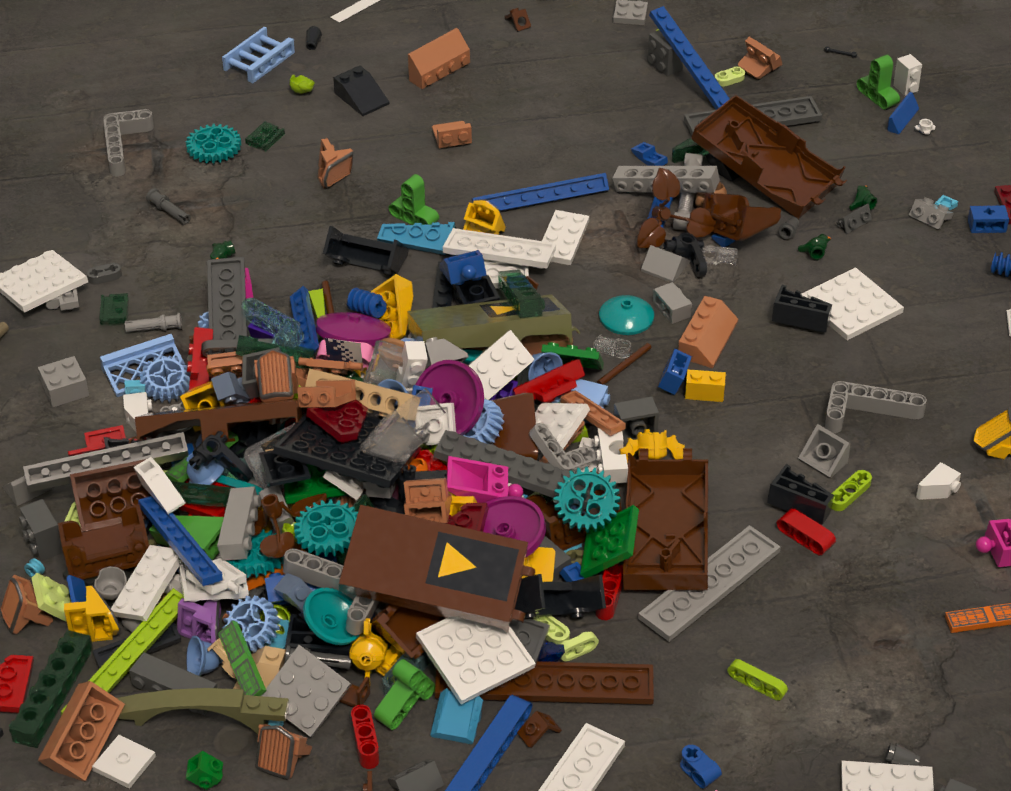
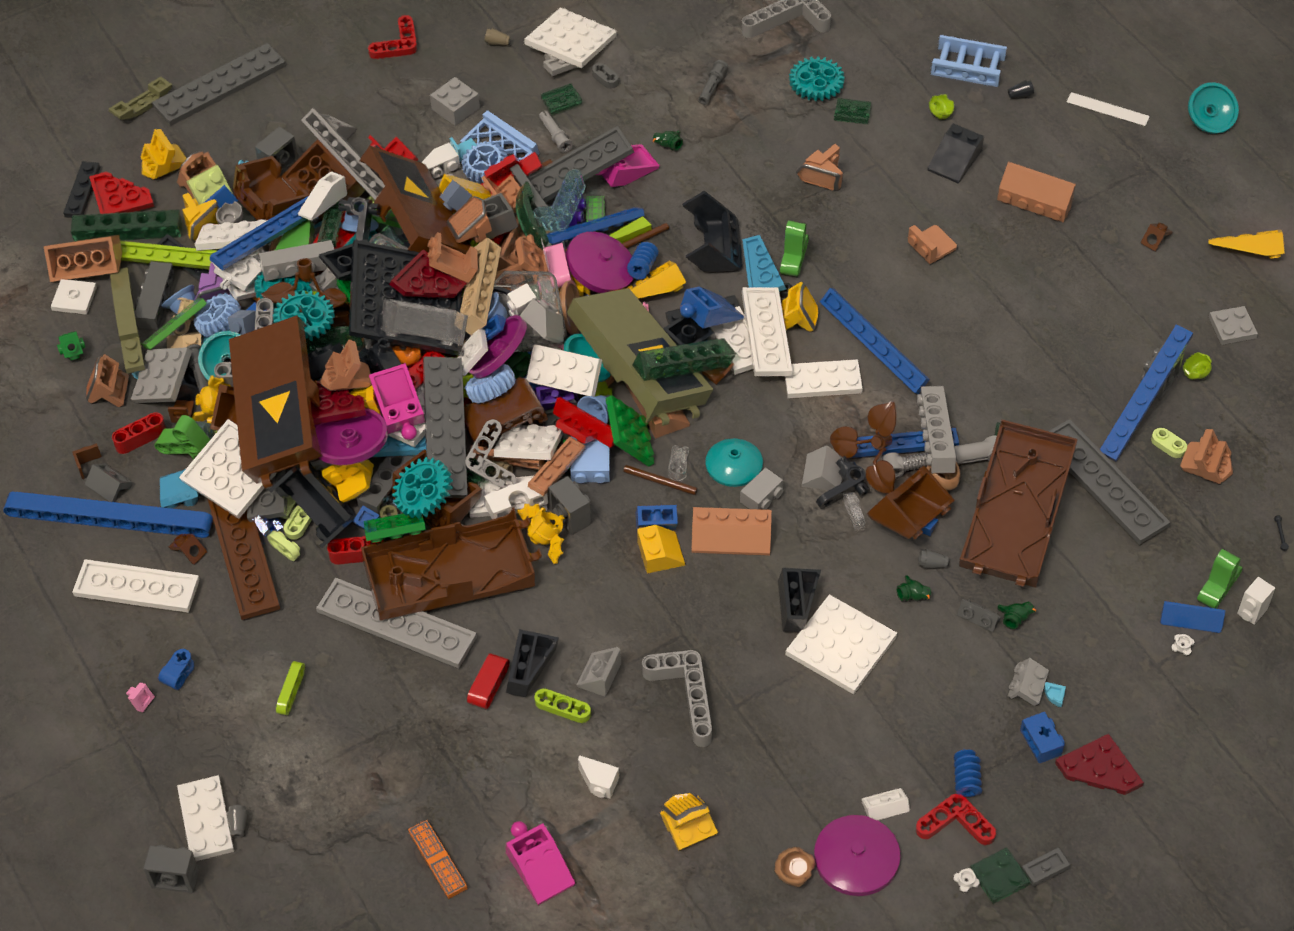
camera: 70 degrees right, 10 degrees up
(648, 155) = (989, 411): blue slope -> none

